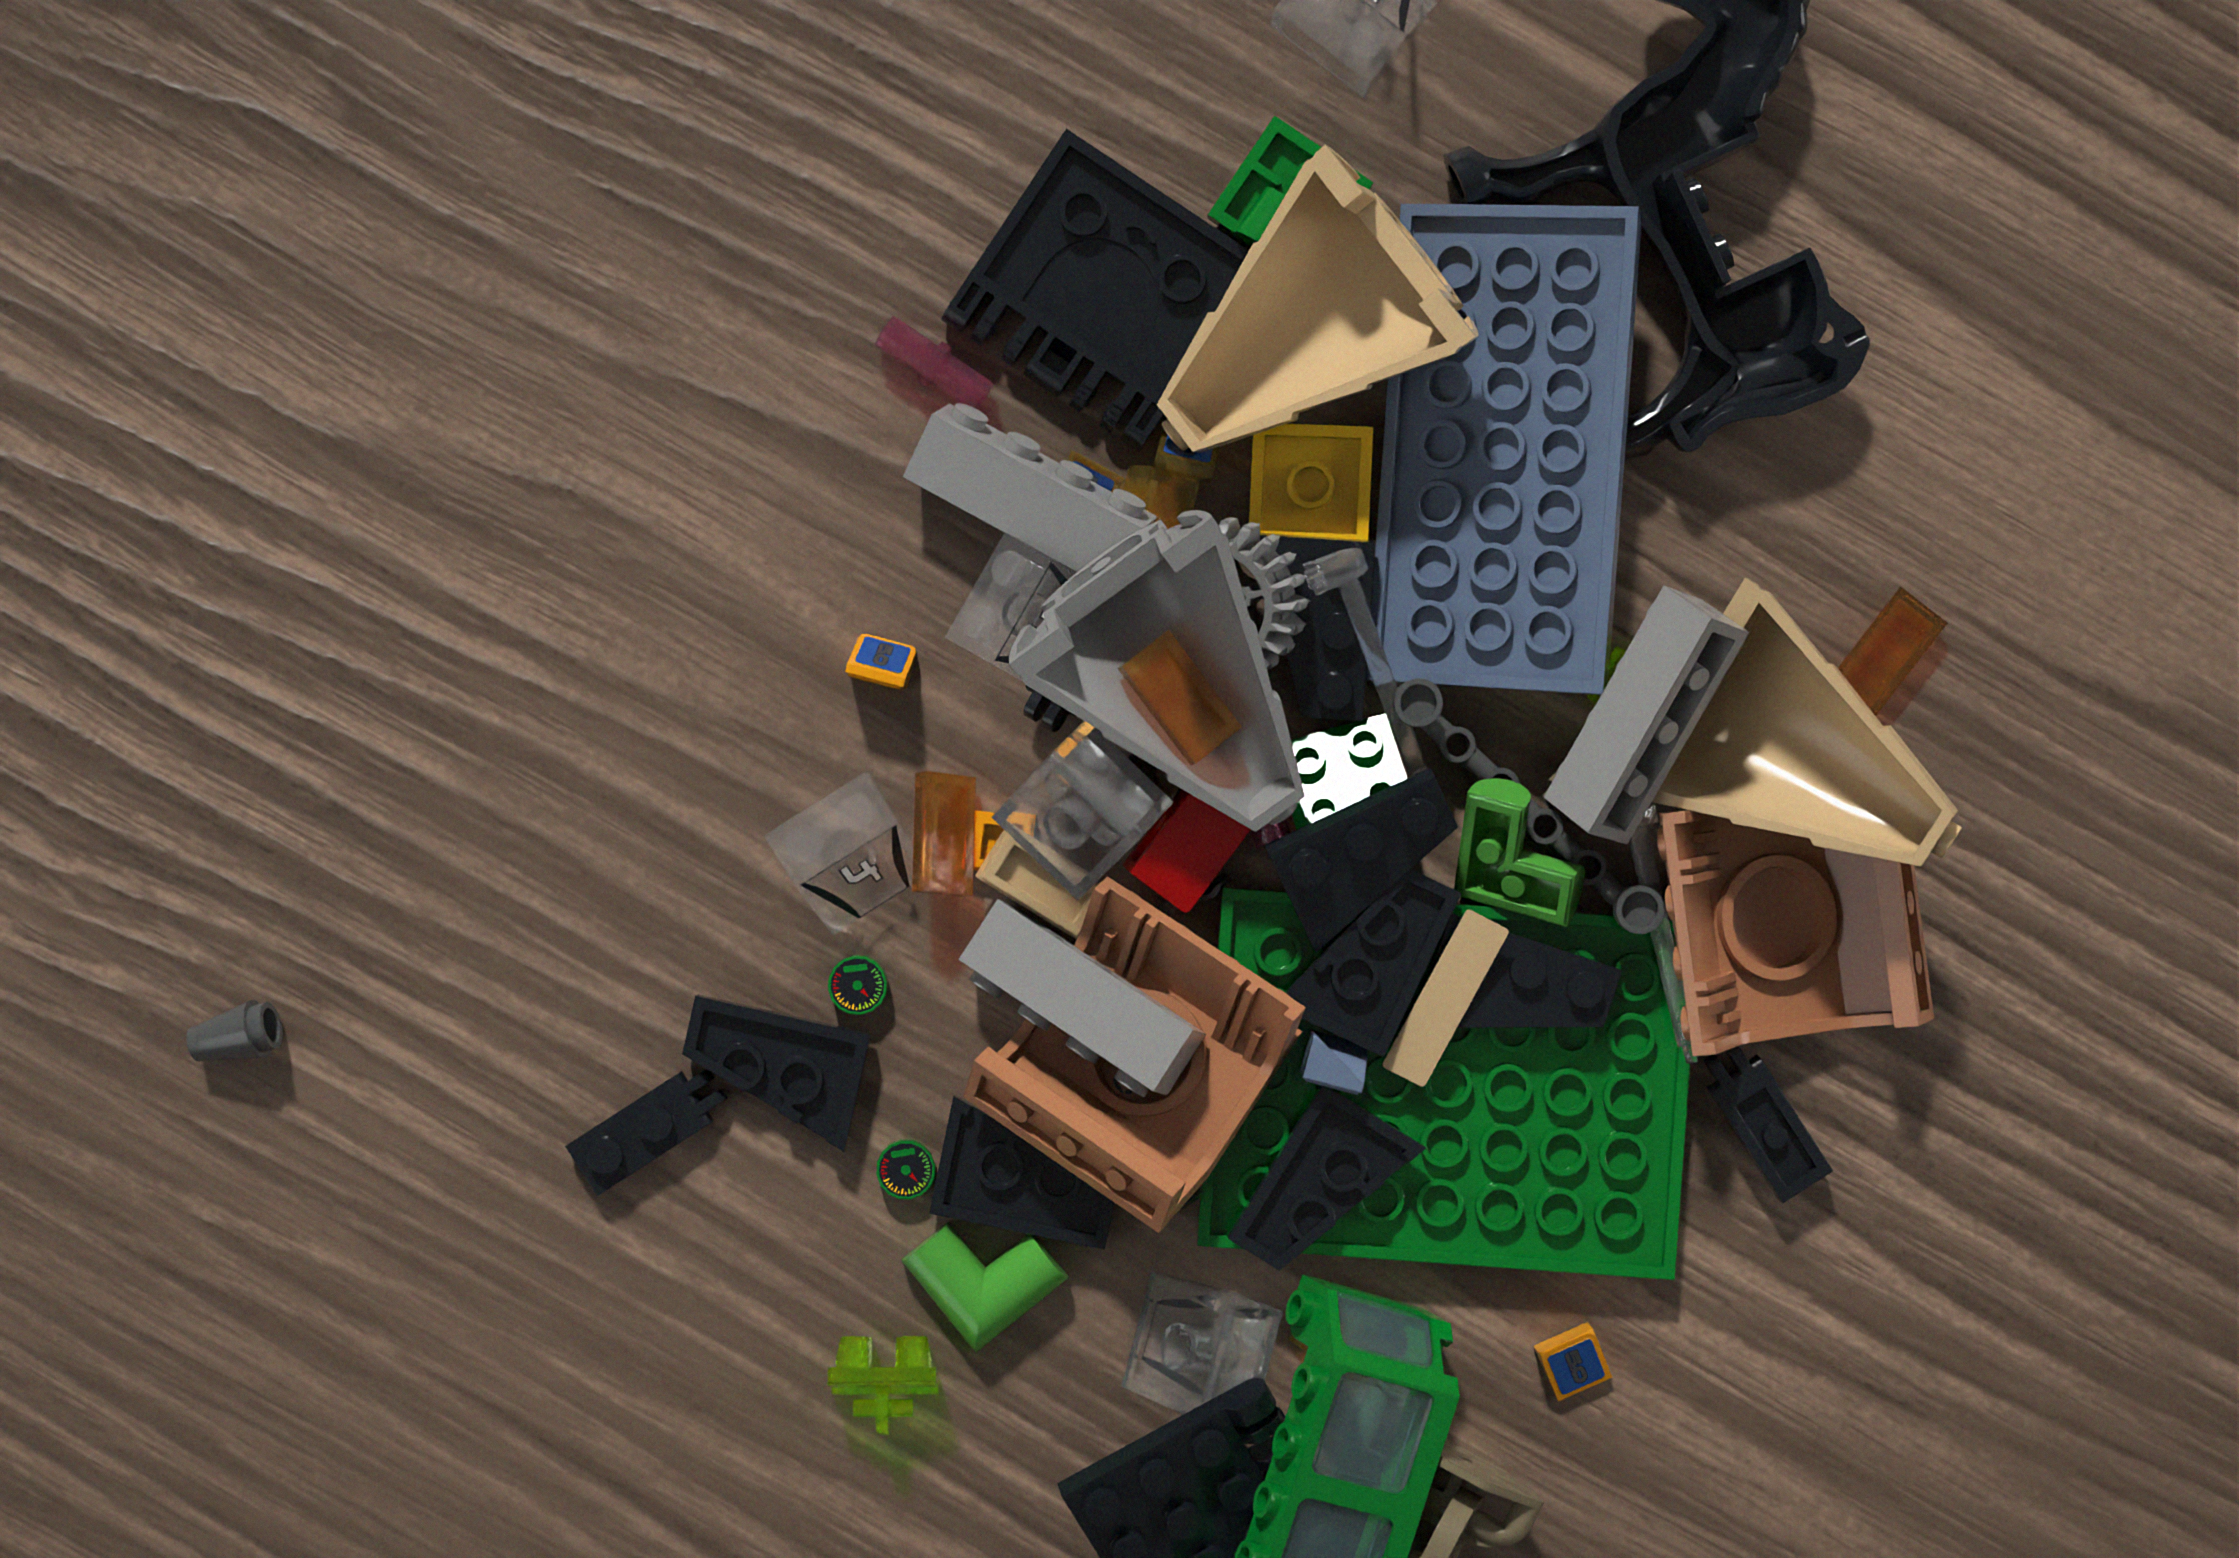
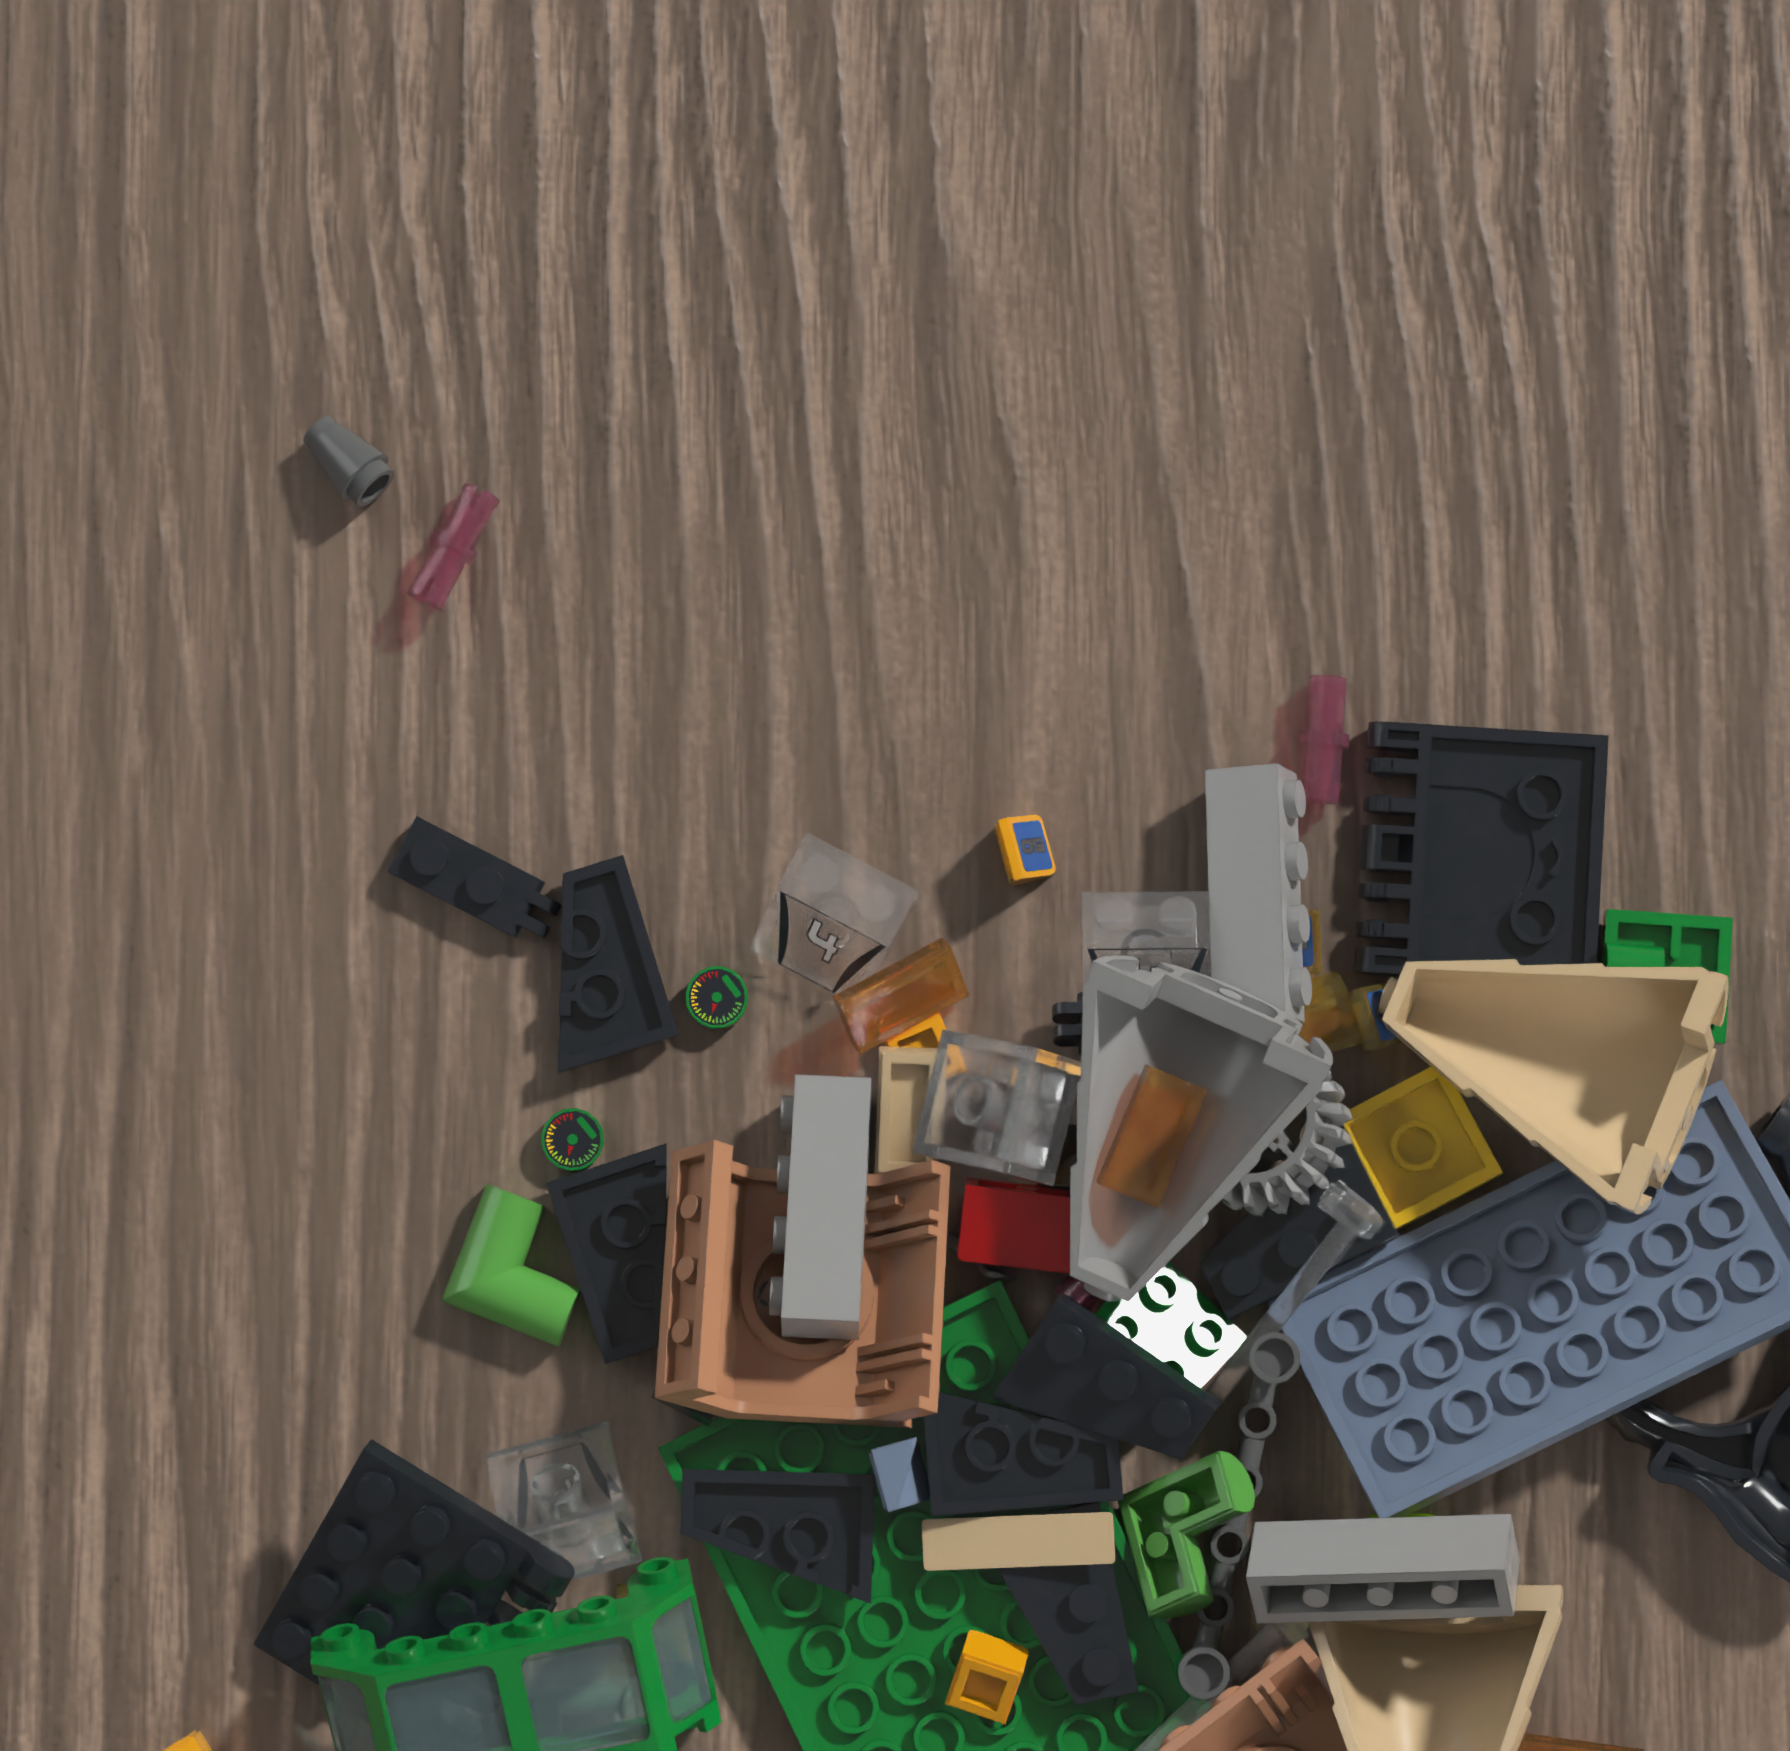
camera: 60 degrees right, 5 degrees down
(358, 988) = (453, 547): none -> clear pink pin
(857, 1376) = (358, 1206): clear neon green hips -> none
(1537, 1084) = (987, 1676): none -> light orange slope

